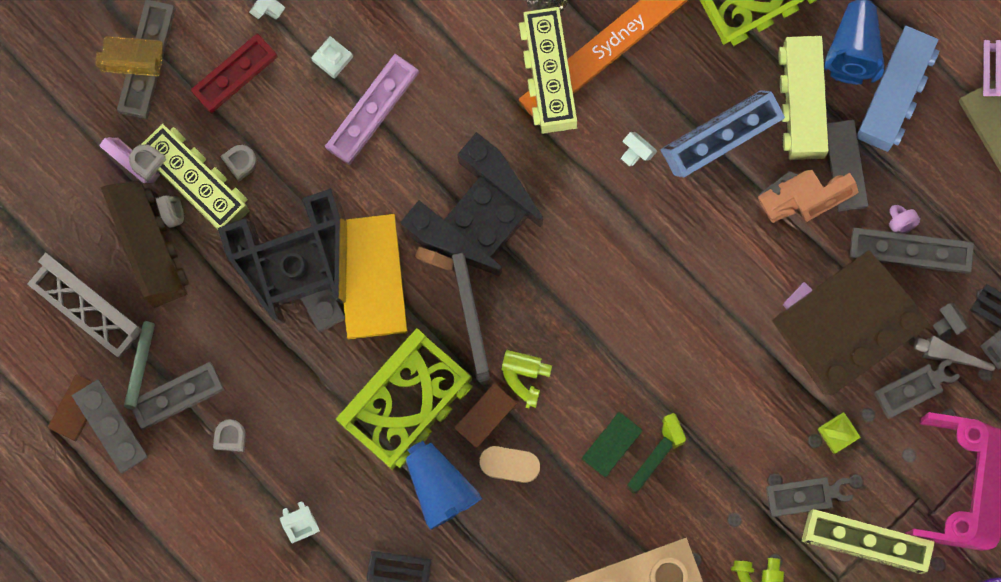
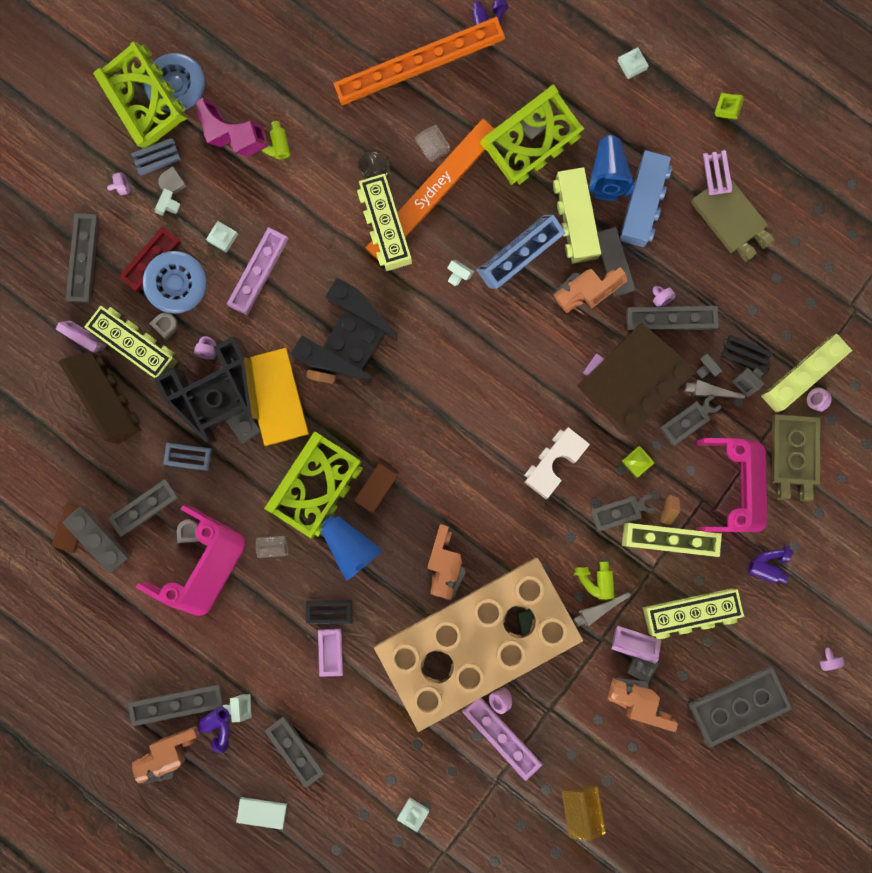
camera: 10 degrees left, 5 degrees up
(85, 293) = (66, 443): light grey fence -> none
(130, 56) = (68, 258): clear yellow panel -> none
(139, 365) = (112, 489): sand green bar -> none
(146, 161) = (91, 335): light grey tile -> none
(170, 210) = (118, 369): light grey tile -> none
(251, 494) = (211, 572): none -> dark pink windscreen
(261, 107) = (174, 282): none -> medium blue wheel
(268, 345) = (206, 459): none -> sand blue tile
(288, 202) = (204, 350): none -> lavender tile
(299, 523) = (250, 589): light aqua tile -> none
(336, 472) = (271, 551): none -> clear piece
(471, 317) = (353, 416): dark grey tile -> none
(509, 464) = (399, 521): tan tile -> none
(525, 365) = (399, 446): lime plant -> none
(564, 532) = (447, 566): none -> nougat plate
(611, 444) = (472, 495): dark green tile -> none
(649, 465) = (502, 507): dark green tile -> none
(672, 430) = (516, 479): lime tile -> none
(747, 397) = (566, 445): none -> white arch
(873, 504) = (671, 510): none -> medium nougat tile

